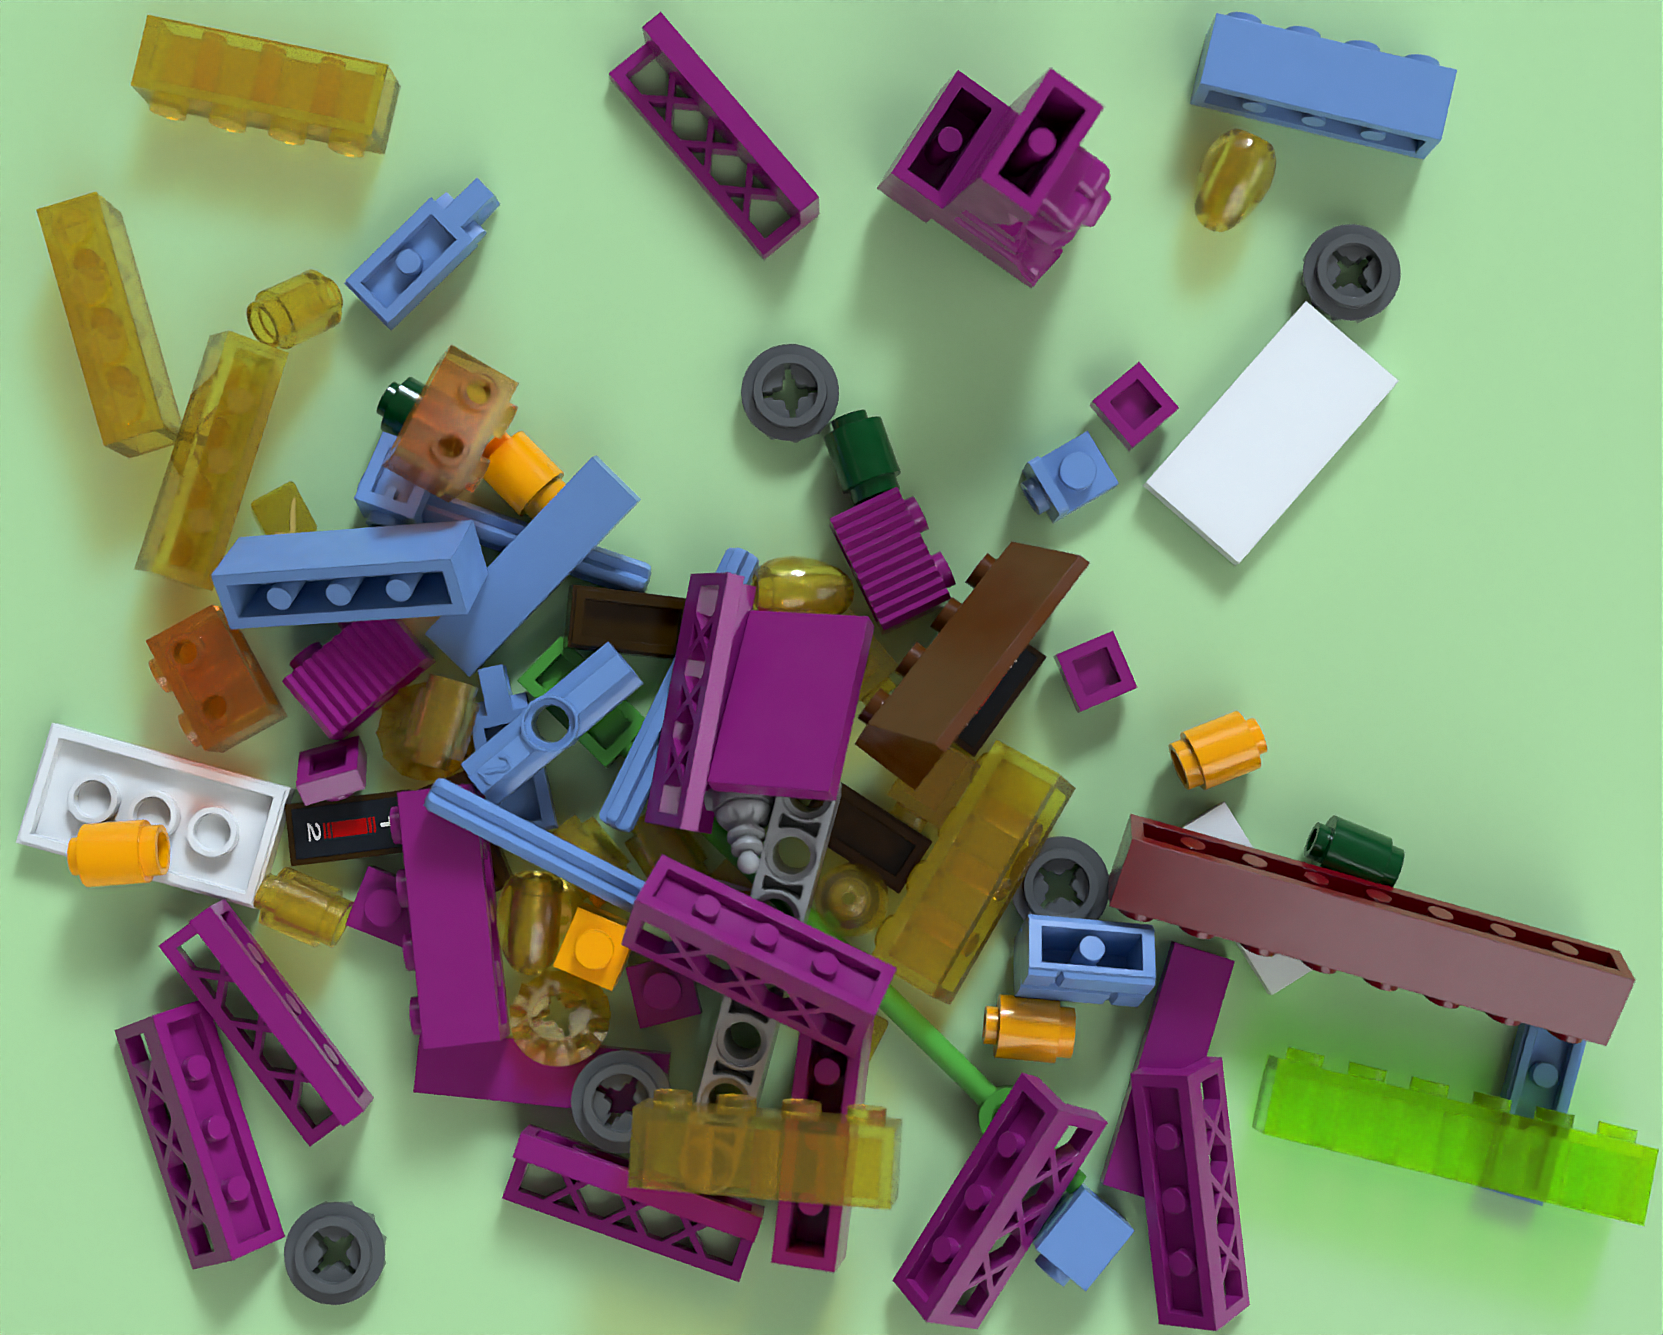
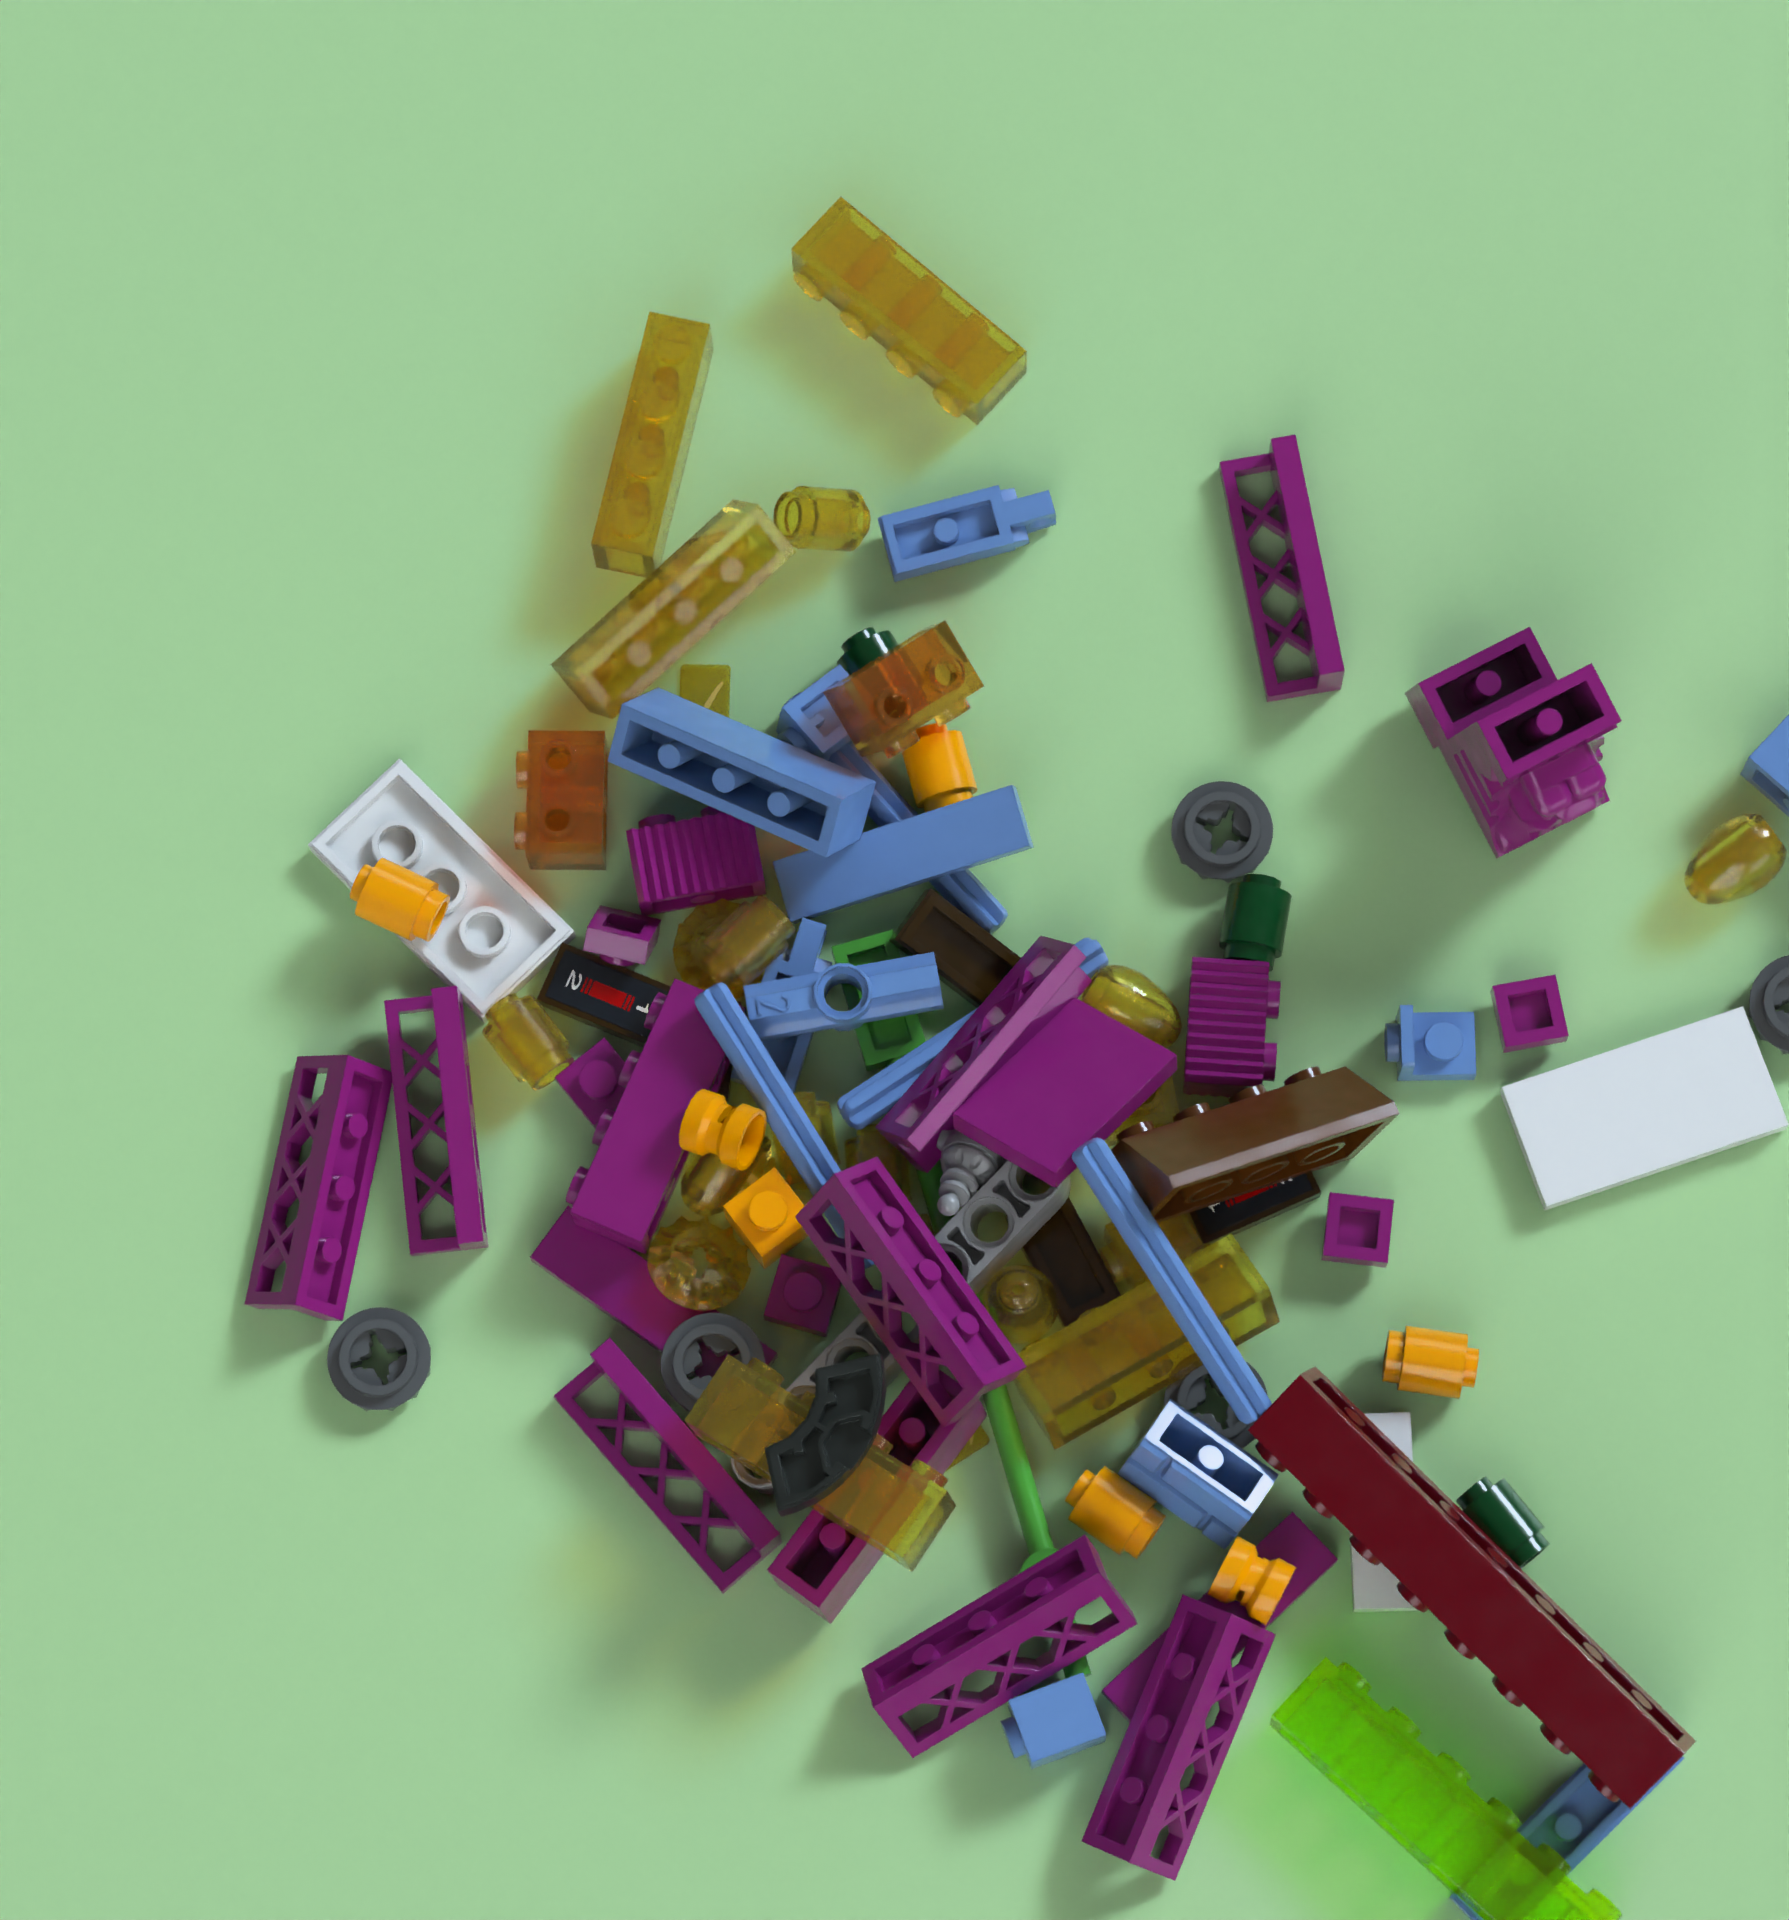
camera: 35 degrees right, 10 degrees down
(514, 905) = (722, 1129): none -> light orange wheel
(767, 1135) = (832, 1436): none -> pearl dark grey tile
(975, 819) = (1171, 1280): none -> medium blue axle
(1187, 1027) = (1251, 1580): none -> light orange wheel

